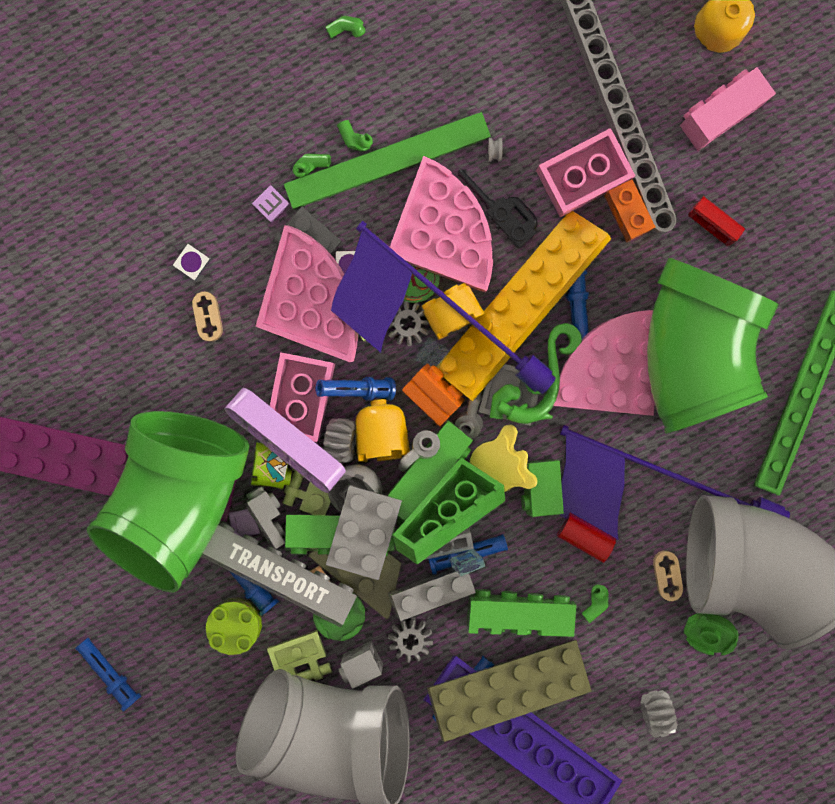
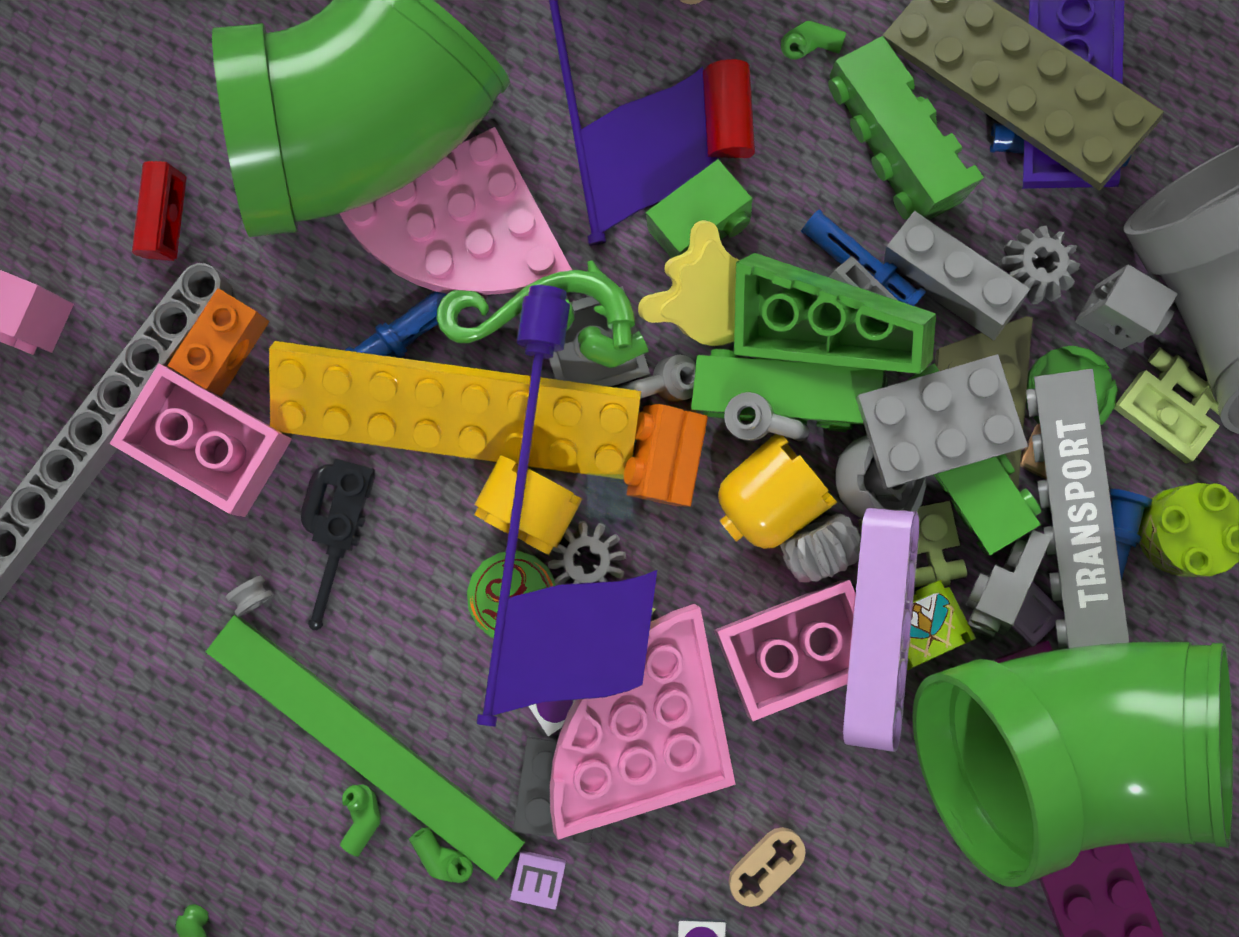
camera: 120 degrees left, 5 degrees down
(366, 388) = (721, 557): blue pin -> none
(445, 229) = (412, 595): bright pink plate -> none
(467, 562) = (879, 249): clear light blue tile -> none

